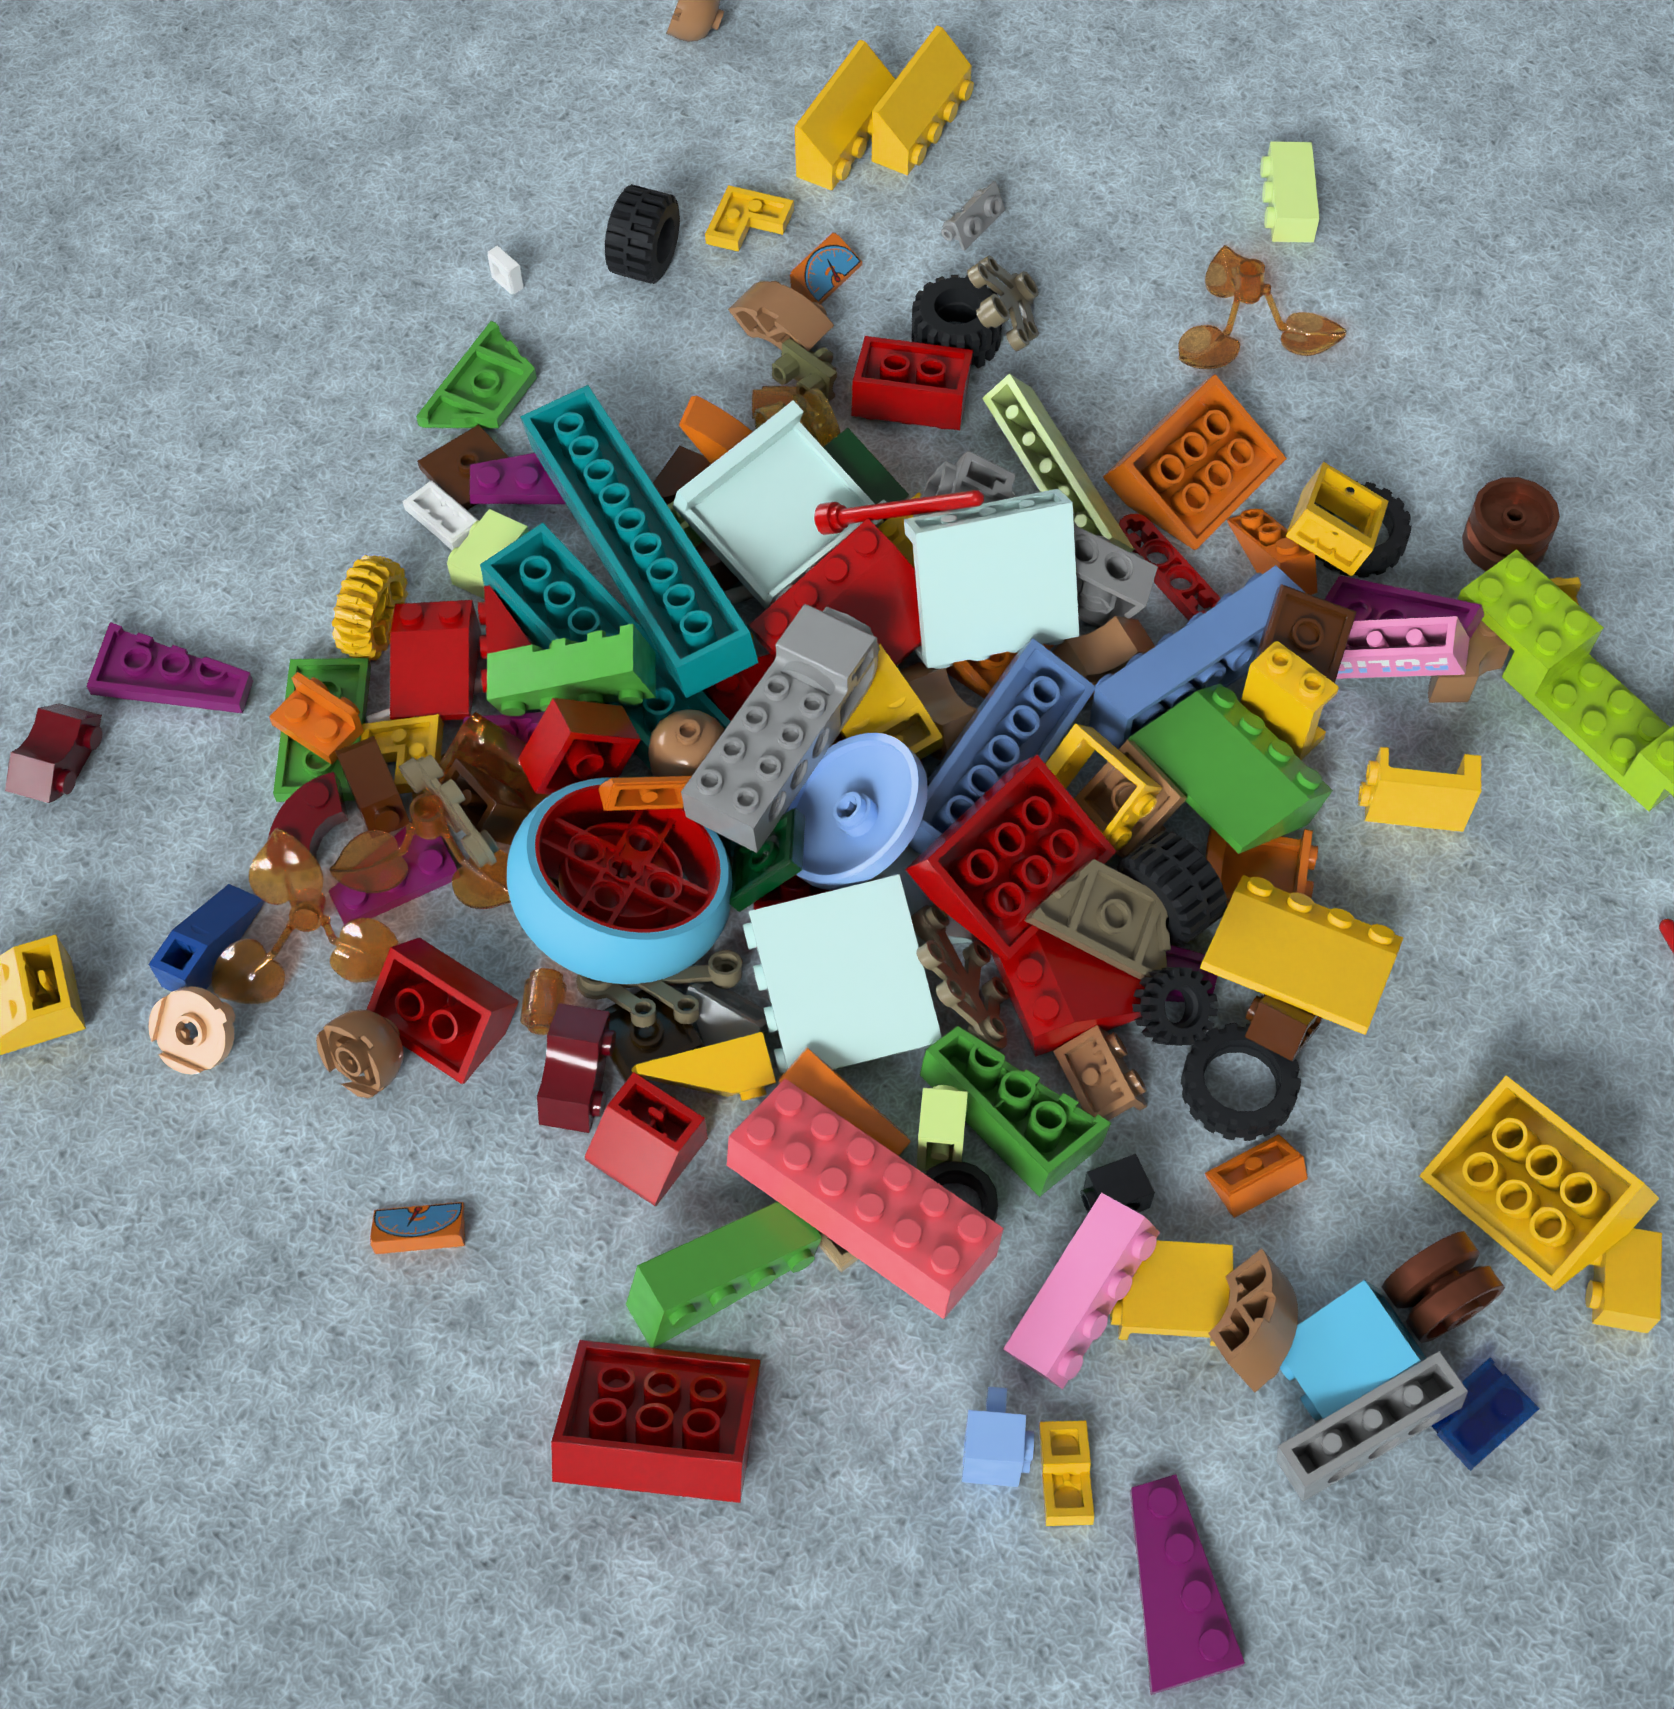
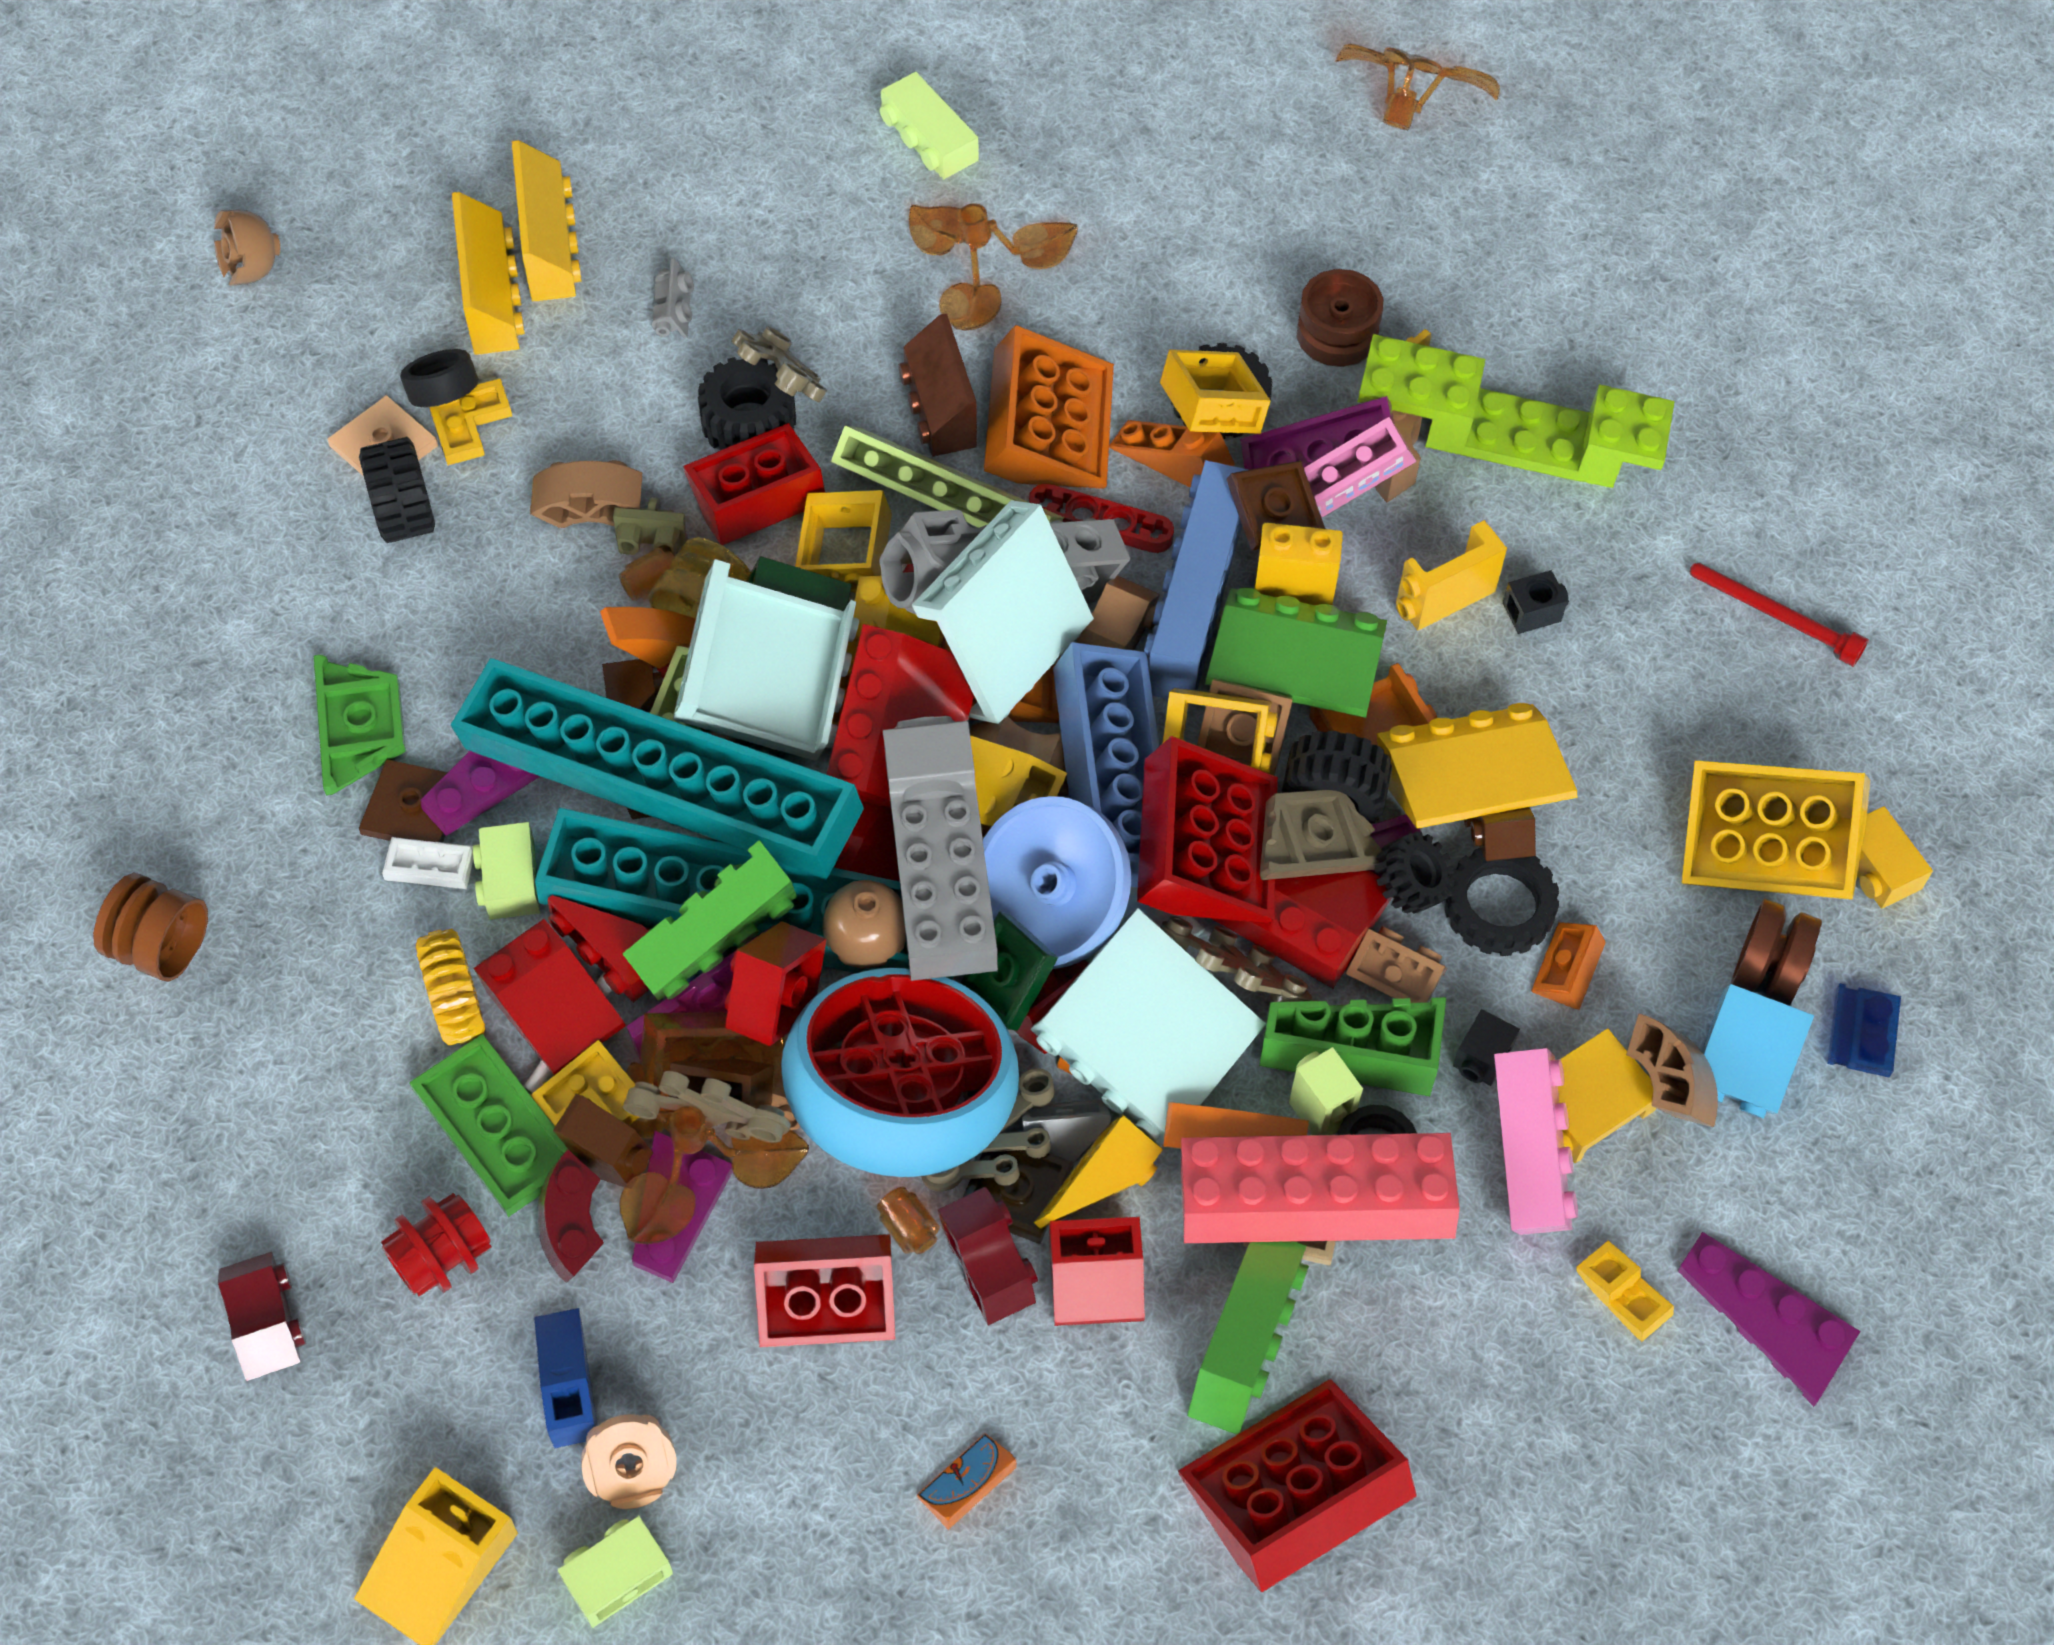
camera: 40 degrees left, 0 degrees up
(118, 1102) = (614, 1570): none -> yellowish green brick
(151, 672) = (285, 1180): magenta wing -> none
(194, 782) = (436, 1244): none -> red piece
(215, 437) = (150, 926): none -> dark orange wheel
(284, 873) = (622, 1269): clear orange plant -> none
(318, 718) = (492, 1116): orange bracket -> none
(360, 1044) = (795, 1369): medium nougat cylinder -> none
(505, 270) = (283, 600): white tile -> none
(643, 793) = (870, 982): orange slope -> none
(689, 190) = (380, 424): none -> light nougat plate
(747, 174) = (439, 378): none -> black tyre
(824, 269) = (582, 426): slope -> none
(834, 517) = (823, 641): red piece -> none
(939, 435) = (828, 511): none -> yellow window
(996, 1443) = (1568, 1304): light blue brick -> none
(1118, 395) = (940, 389): none -> copper slope
(1371, 1426) = (1810, 1093): light grey brick -> none
(1482, 844) = (1522, 605): none -> black brick

